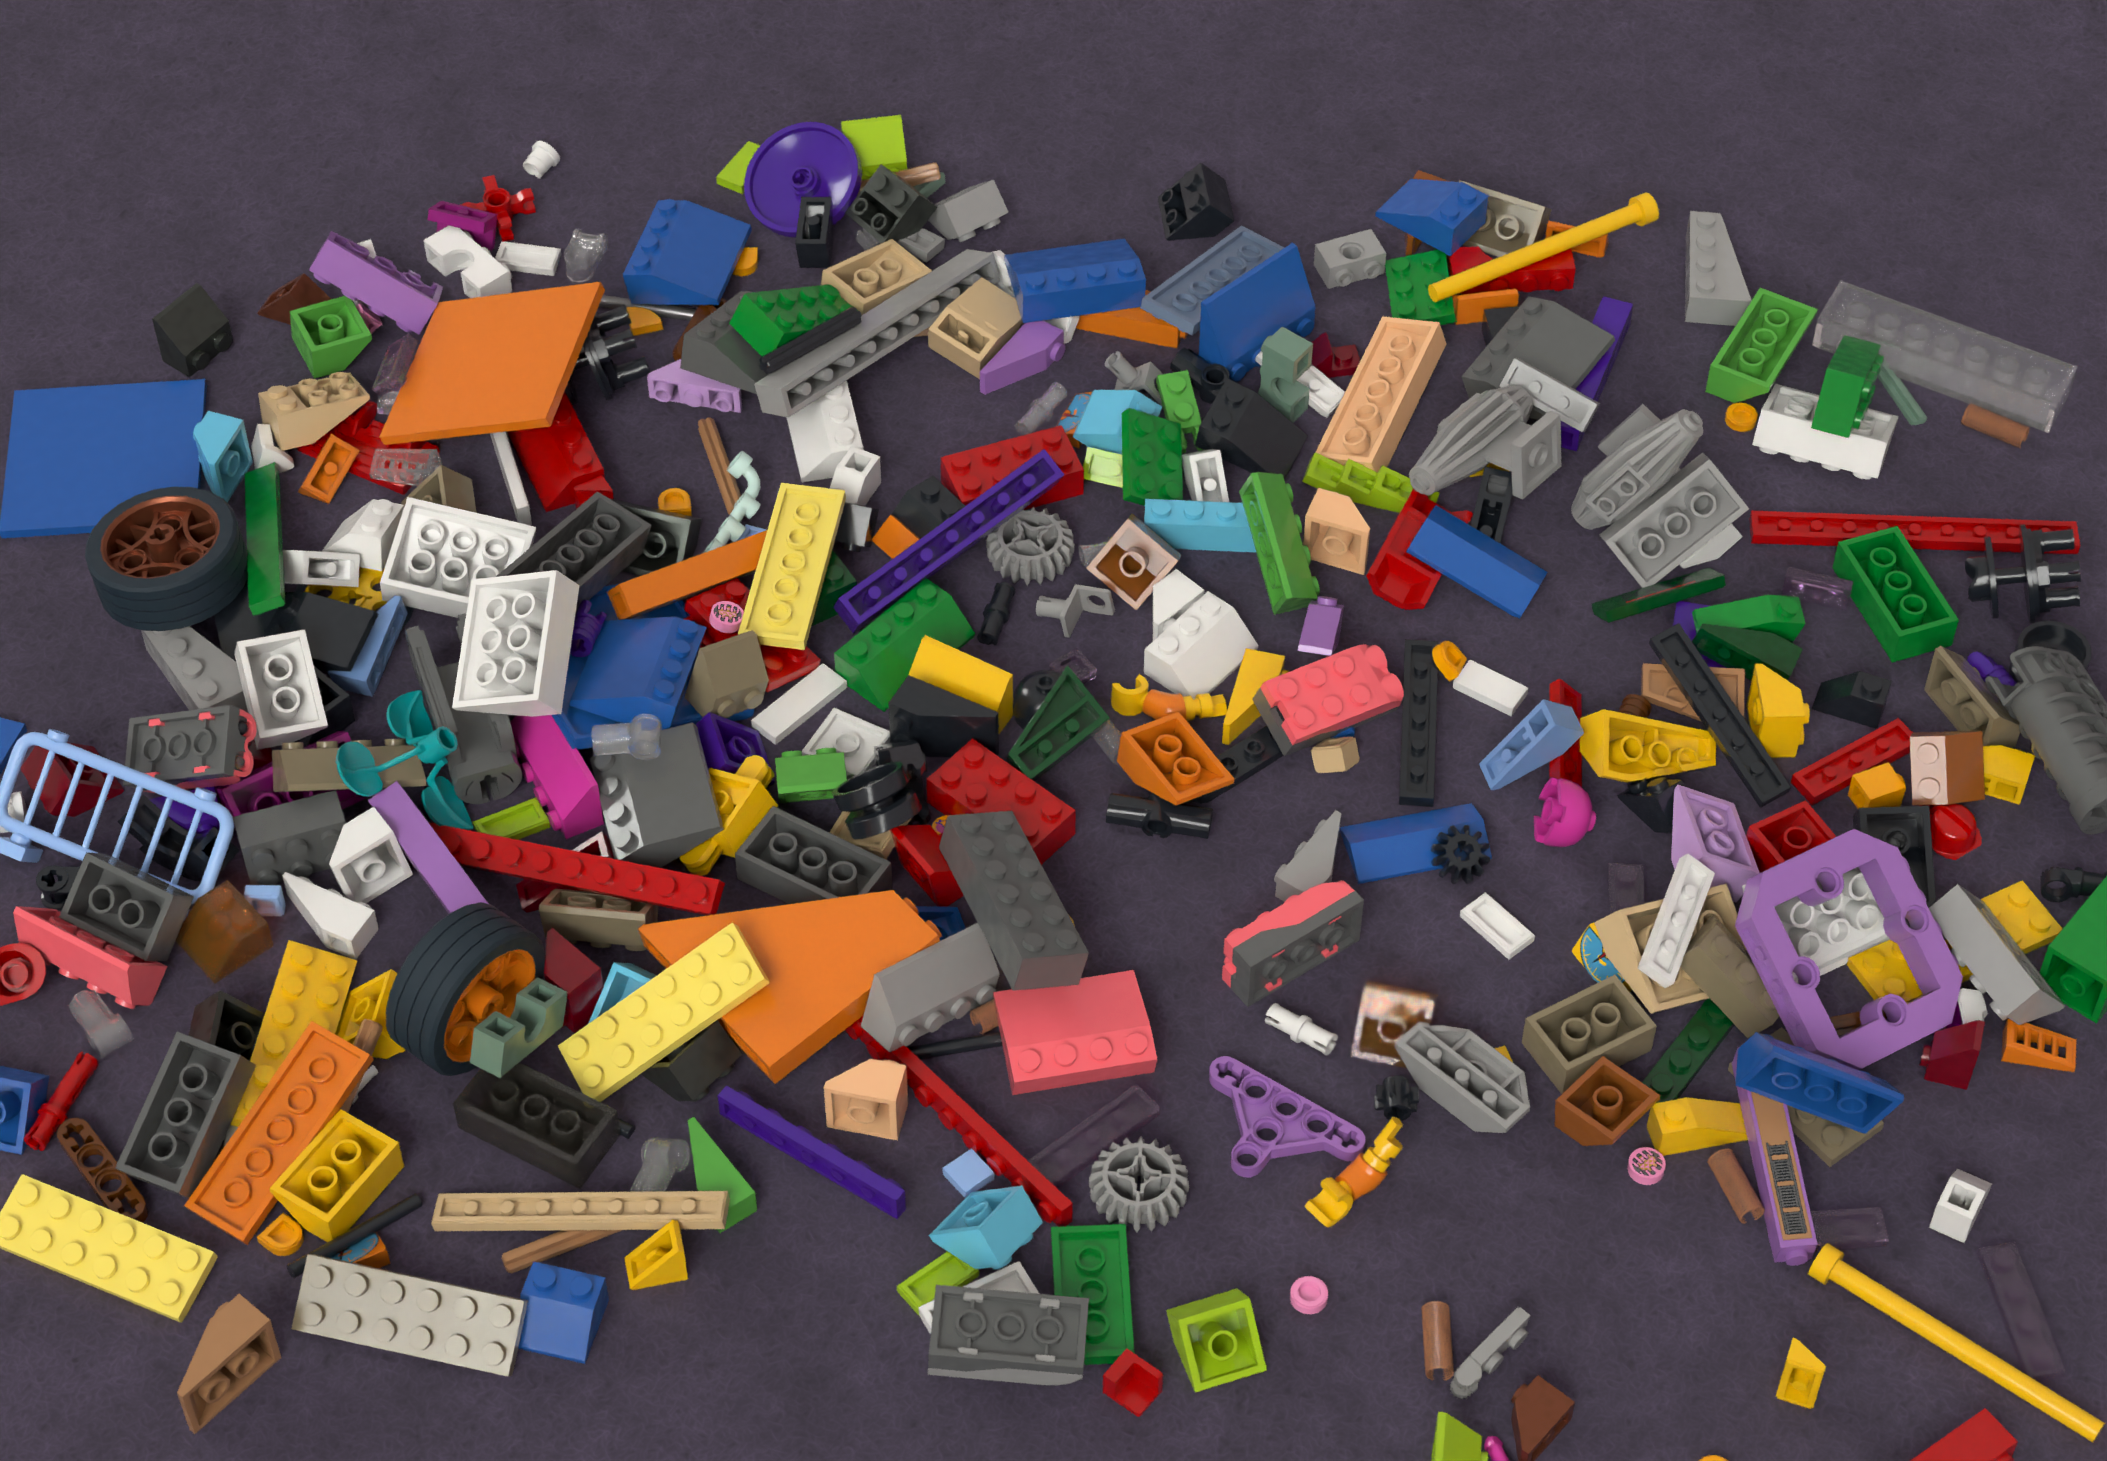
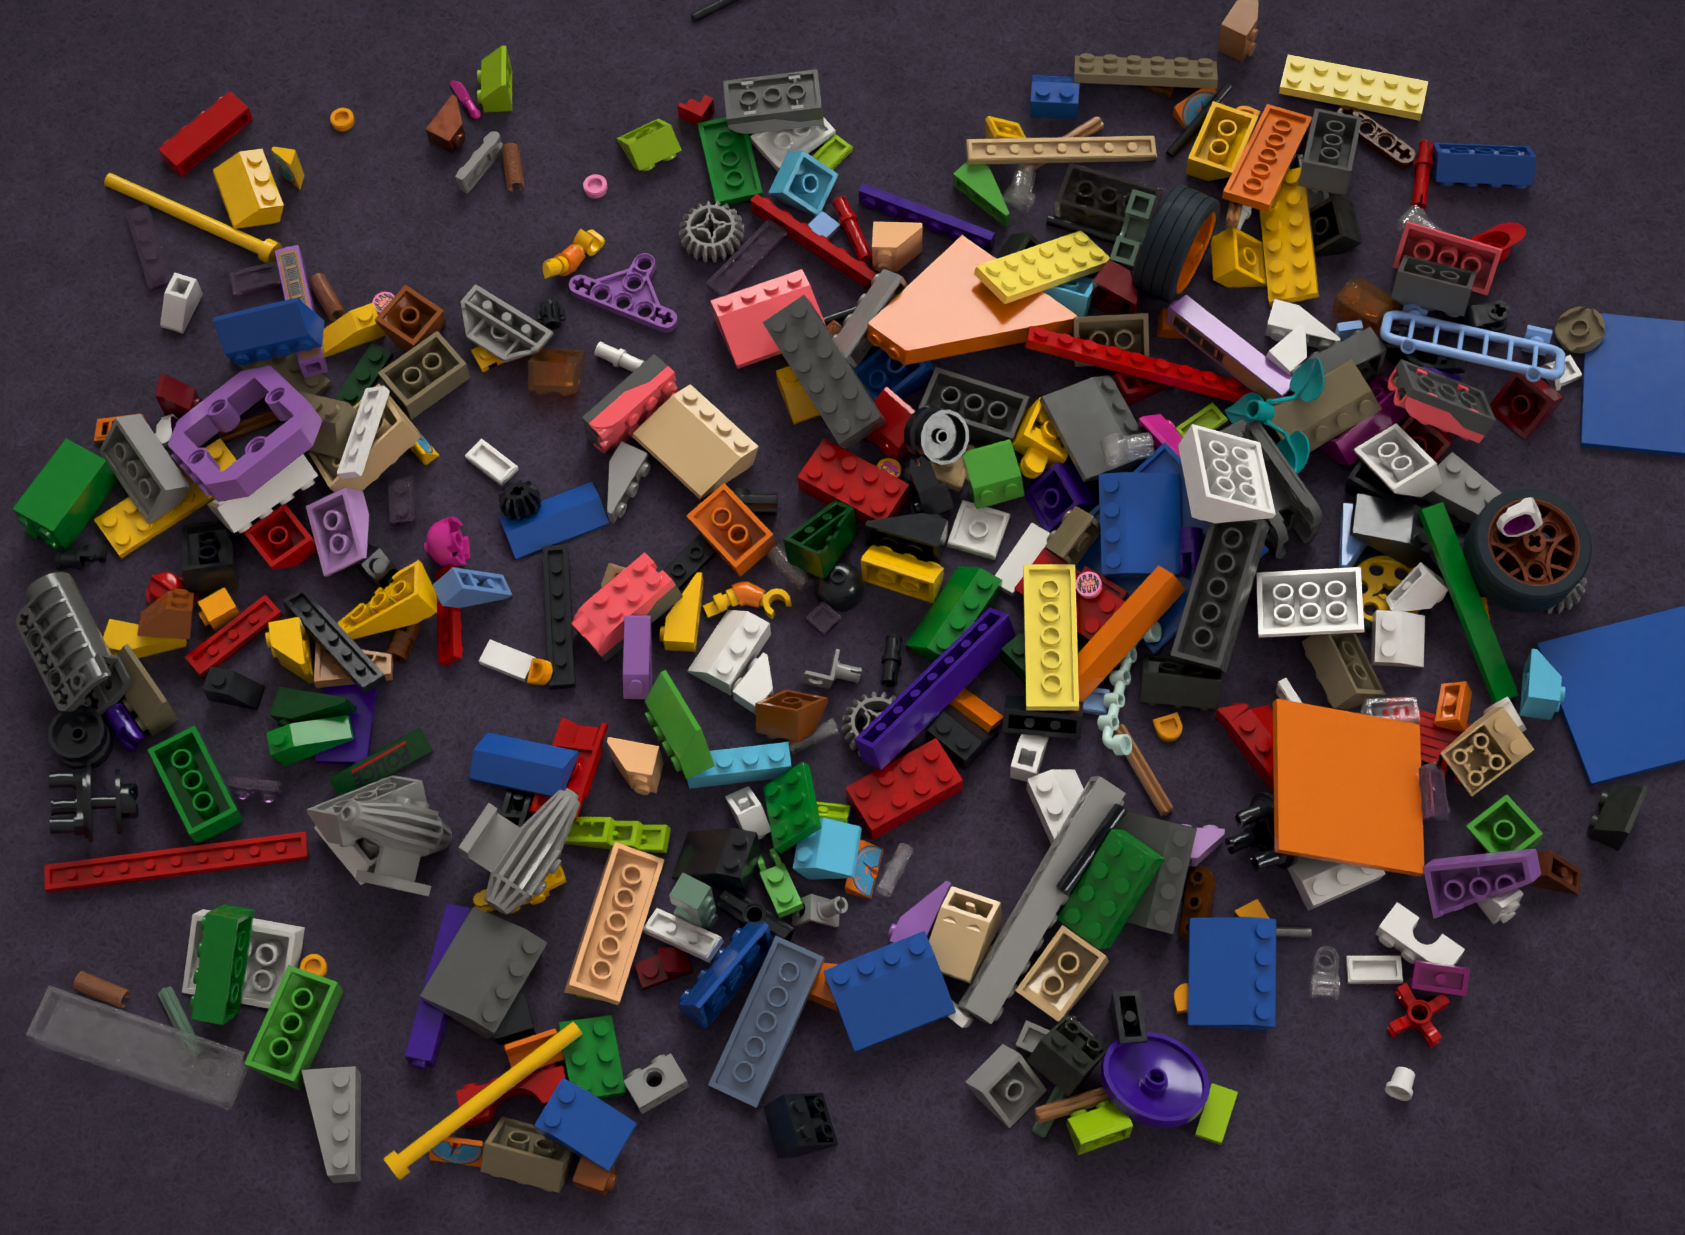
camera: 175 degrees right, 15 degrees up
(165, 552) = (1520, 518): none -> white rock
(927, 1169) = (849, 222): none -> red pin
(1205, 880) = (696, 442): none -> tan slope
(1552, 394) = (471, 913): light grey plate -> none
(1864, 1356) = (249, 190): none -> yellow slope

